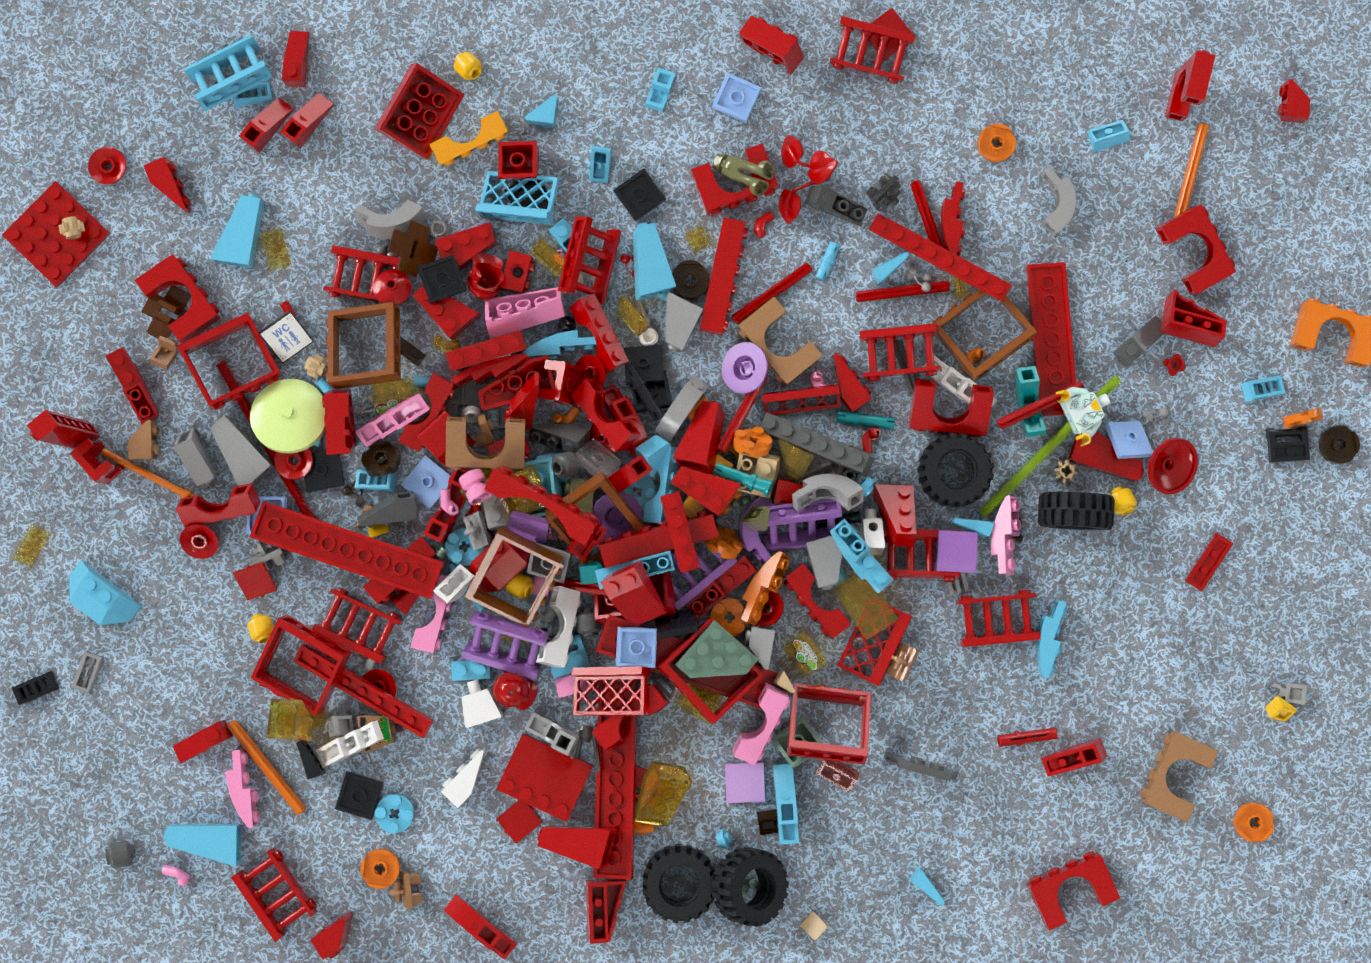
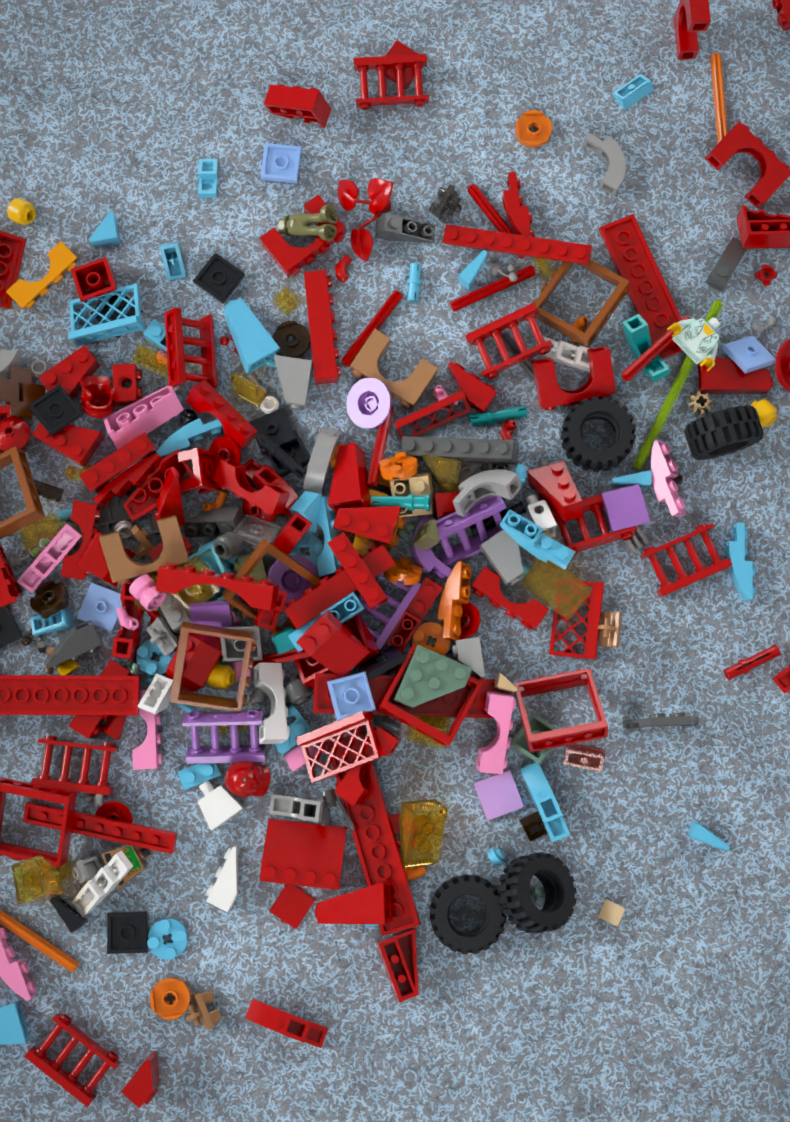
camera: 20 degrees left, 5 degrees down
(805, 653) = (515, 651): slope -> none

